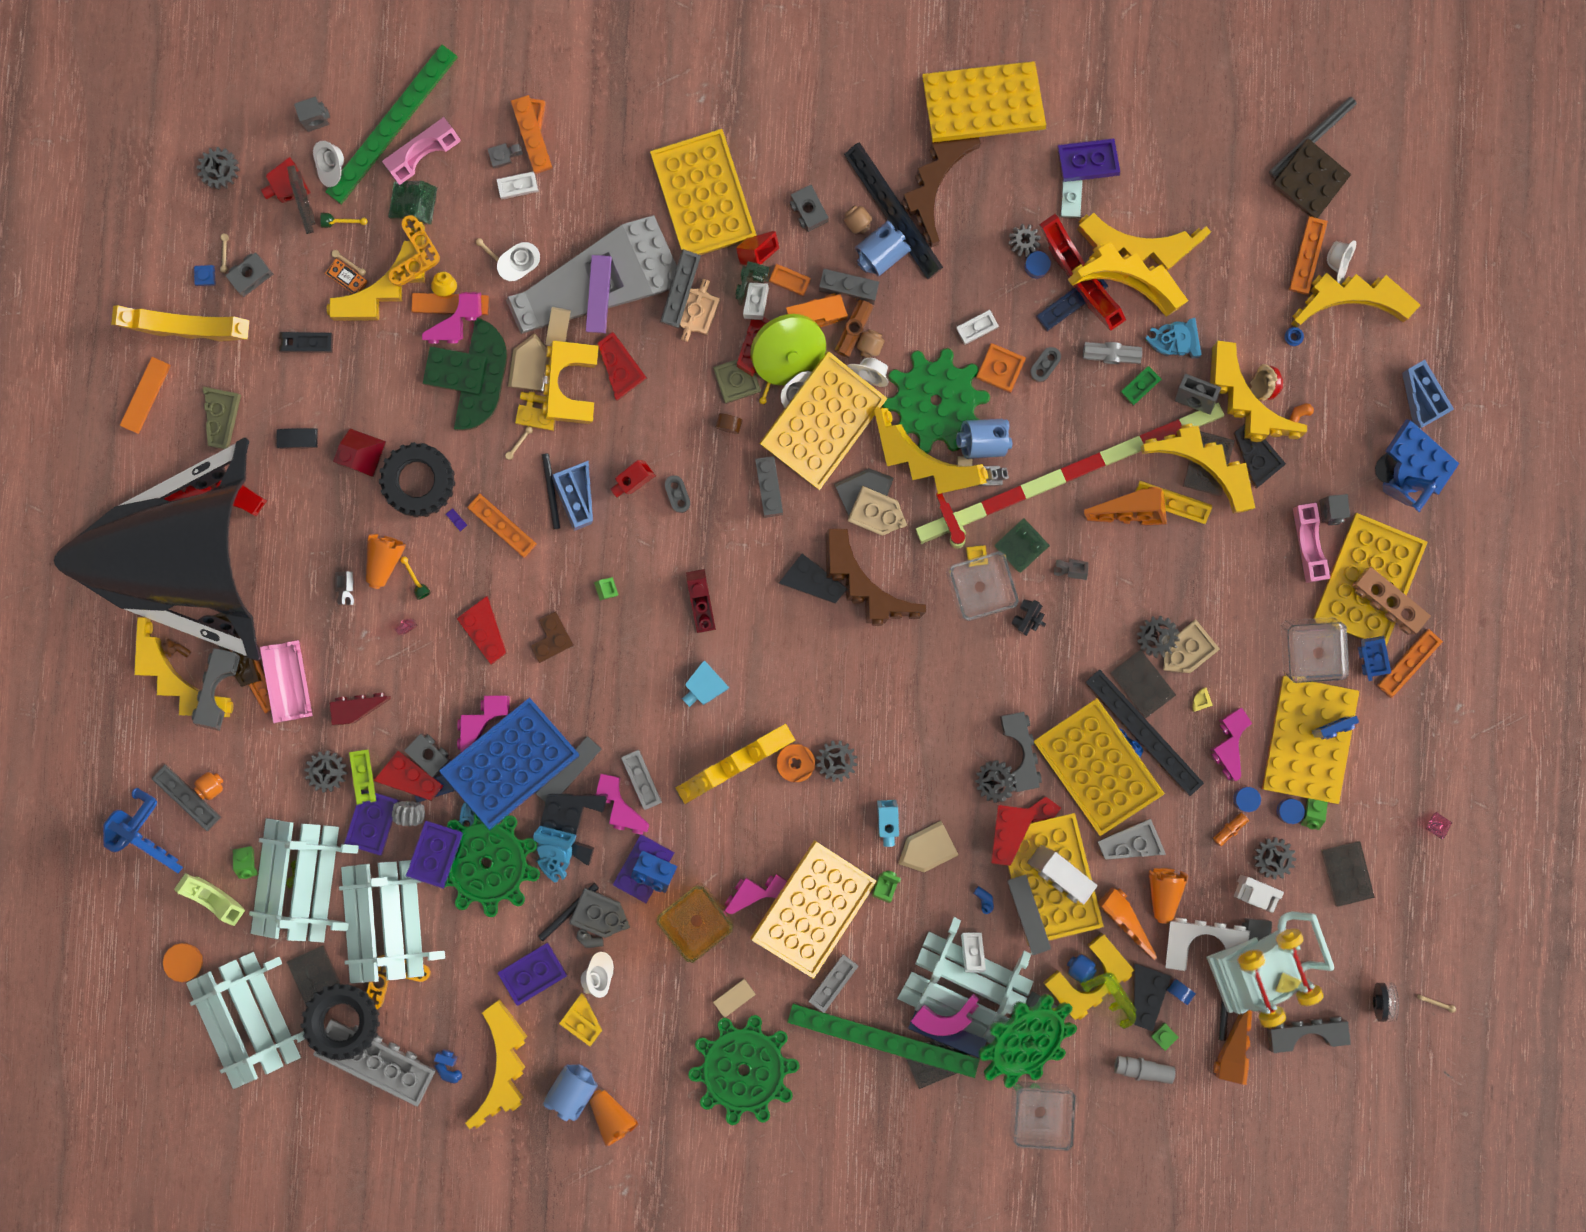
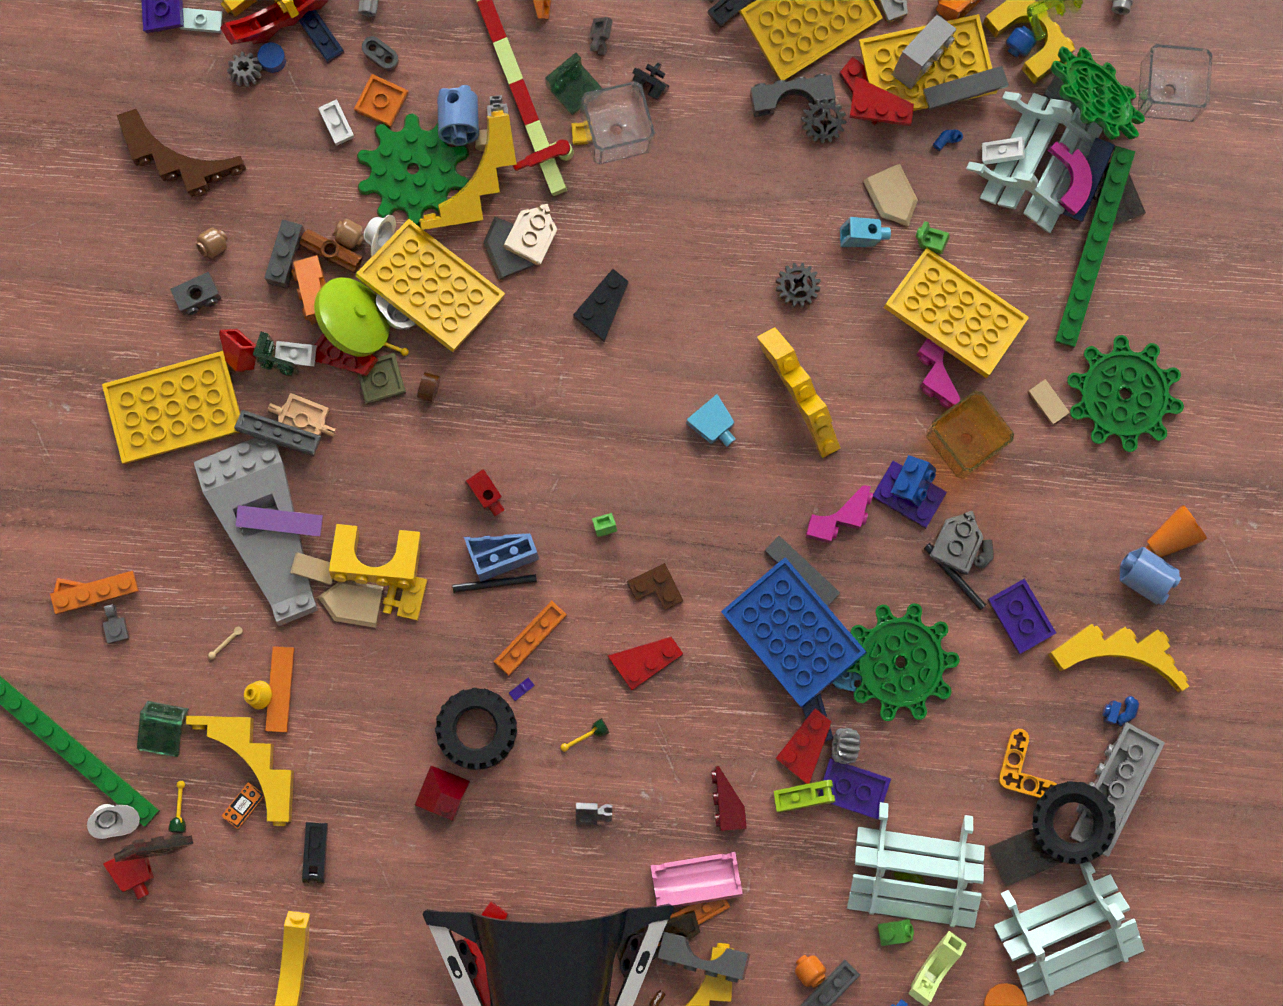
camera: 90 degrees left, 5 degrees down
(204, 275) = (232, 967): blue plate -> none
(211, 170) = (113, 956): dark grey gear -> none
(221, 416) = (394, 950): olive wing -> none
(224, 237) = (190, 944): tan hinge -> none
(260, 273) = (245, 920): dark grey brick -> none
(297, 438) = (423, 864): black slope -> none
(312, 114) = (55, 836): dark grey brick -> none
(325, 779) = (798, 827): dark grey gear -> none
(336, 254) = (216, 817): tan hinge -> none
(361, 930) = (964, 766): light aqua piece -> none
(381, 559) = (563, 769): orange cone -> none
(406, 626) = (638, 745): clear pink tile -> none
(417, 749) = (793, 719): dark grey brick -> none
(419, 258) = (227, 717): light orange beam -> none
(434, 854) = (892, 714): dark purple plate -> none
(435, 138) = (91, 697): bright pink arch -> none
(452, 327) = (306, 686): dark pink arch -> none
(473, 725) = (749, 673): dark pink arch -> none
(474, 374) = (360, 664): dark green plate -> none
(509, 455) = (452, 628): tan hinge -> none
(517, 185) = (150, 610): white plate -> none
(518, 261) = (236, 609): white piece -> none
(552, 850) = (887, 587): dark azure piece -> none
(564, 814) = (855, 578): black wing -> none
(582, 1021) = (1072, 564): yellow wing -> none
(598, 975) = (1026, 546): white piece -> none
(620, 365) = (359, 503): red wing -> none
(641, 779) = (813, 493): light grey plate -> none
(678, 494) = (503, 443): dark grey plate -> none
(700, 600) = (620, 423): dark red slope -> none
(769, 487) = (509, 343): dark grey arch -> none
(789, 280) = (274, 317): orange tile -> none
(792, 773) = (802, 318): orange plate -> none
(833, 983) = (1034, 297): light grey plate -> none
(859, 588) = (588, 269): reddish brown arch -> none
(881, 249) = (246, 216): medium blue cylinder -> none
(893, 210) = (203, 205): black plate -> none
(983, 101) = (91, 104): yellow plate -> none

